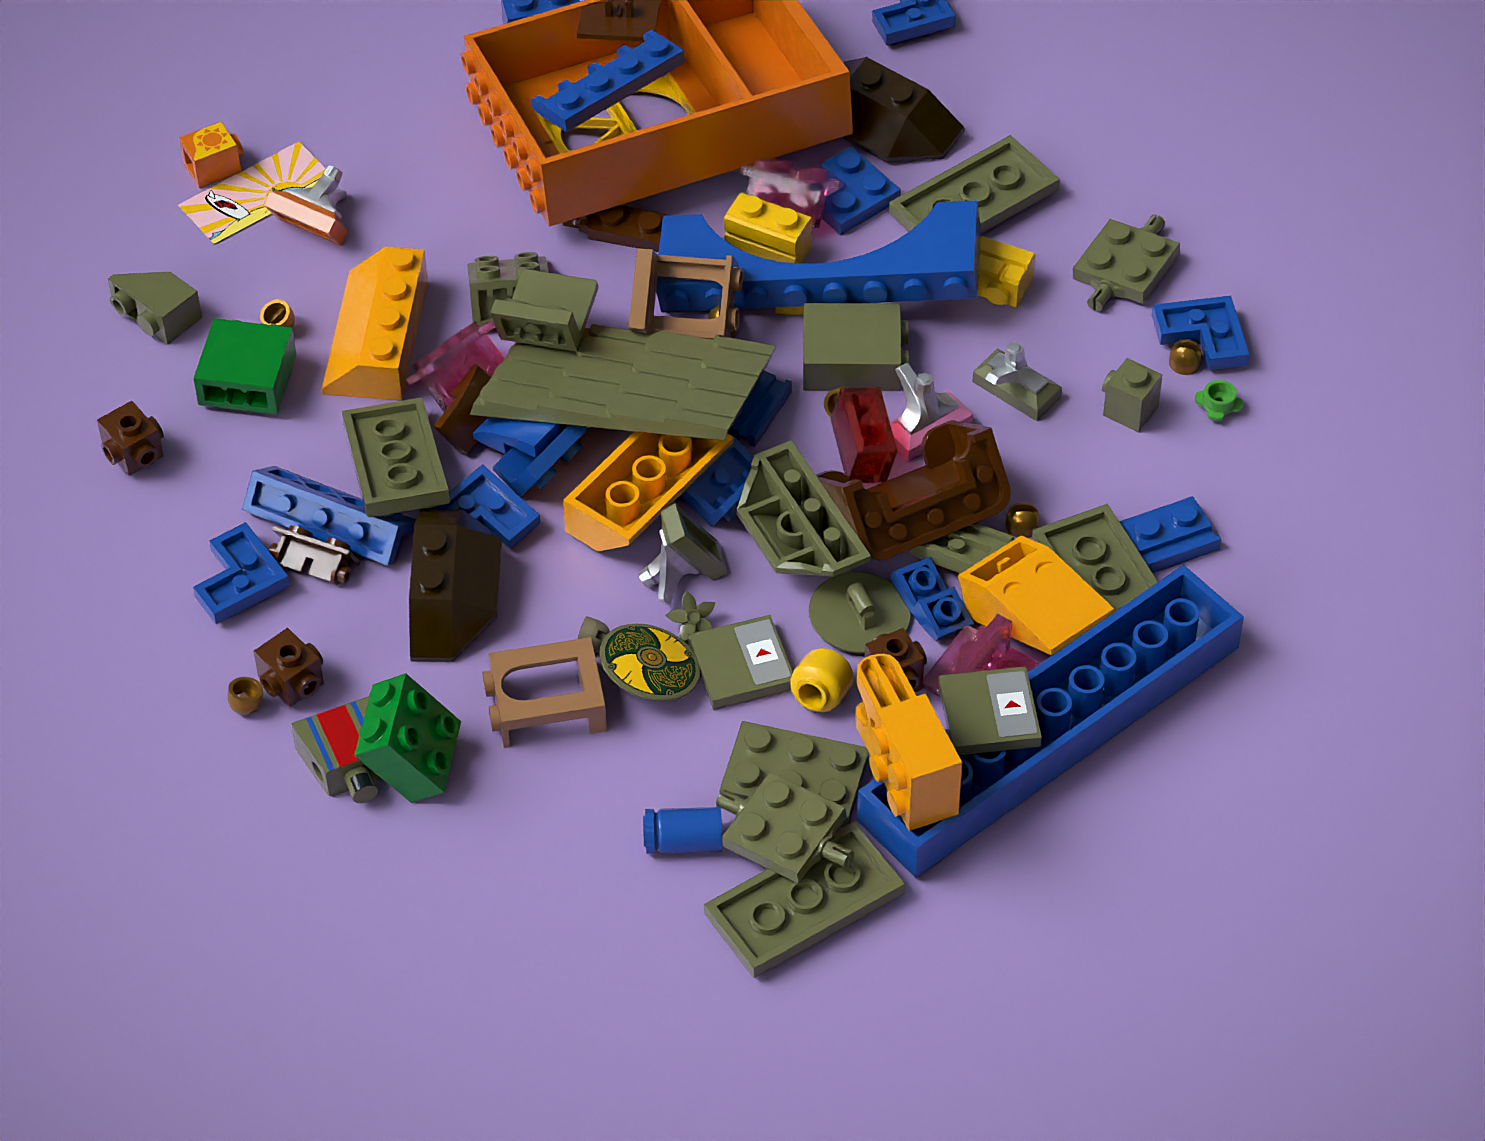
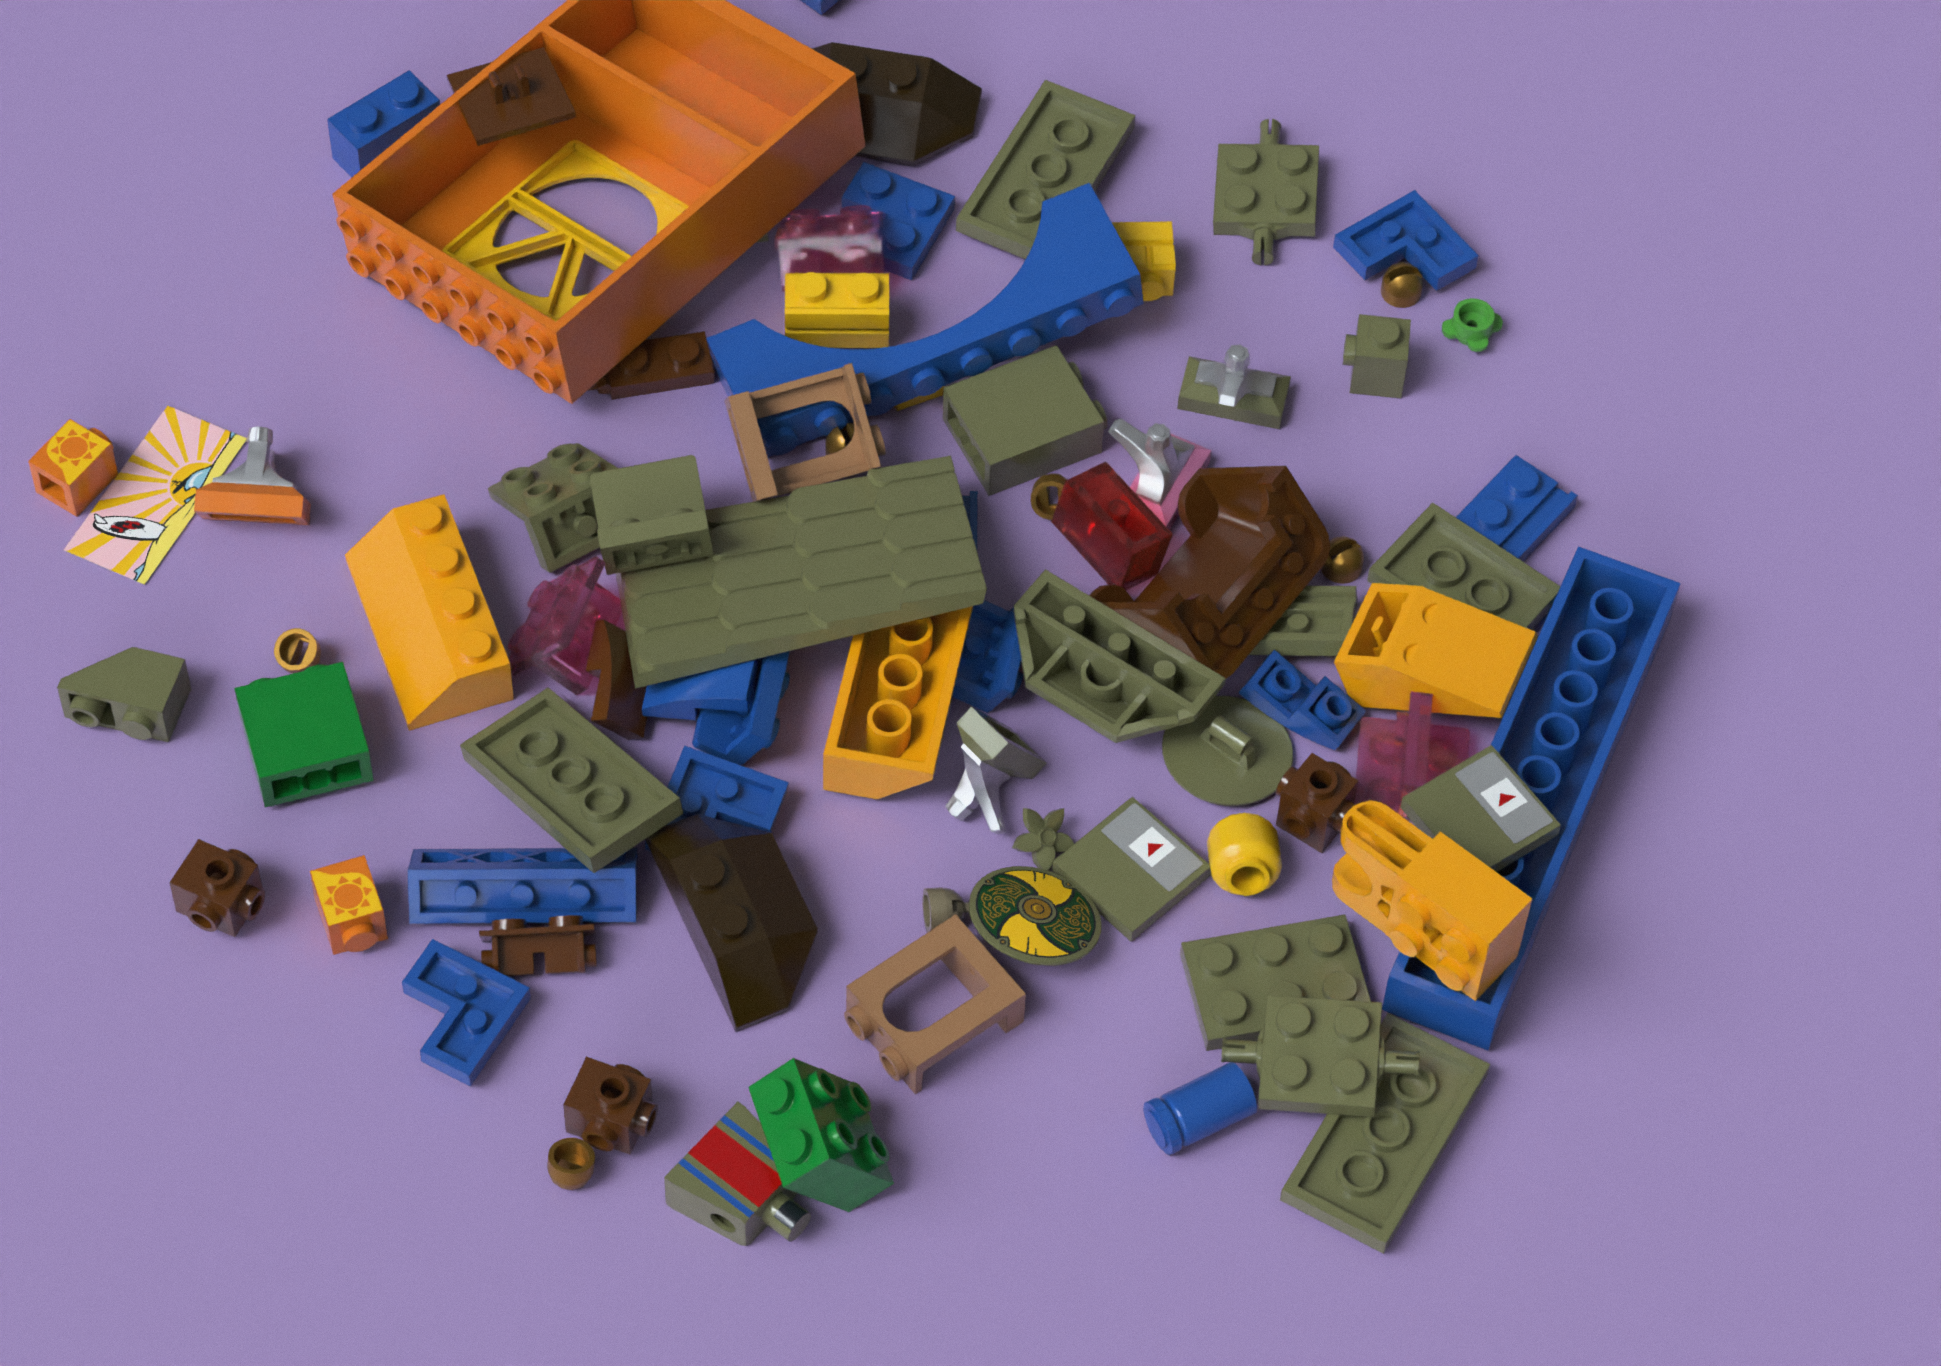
camera: 30 degrees left, 5 degrees up
(207, 481) = (349, 905): none -> brick
(610, 82) = (567, 193): blue hinge -> none

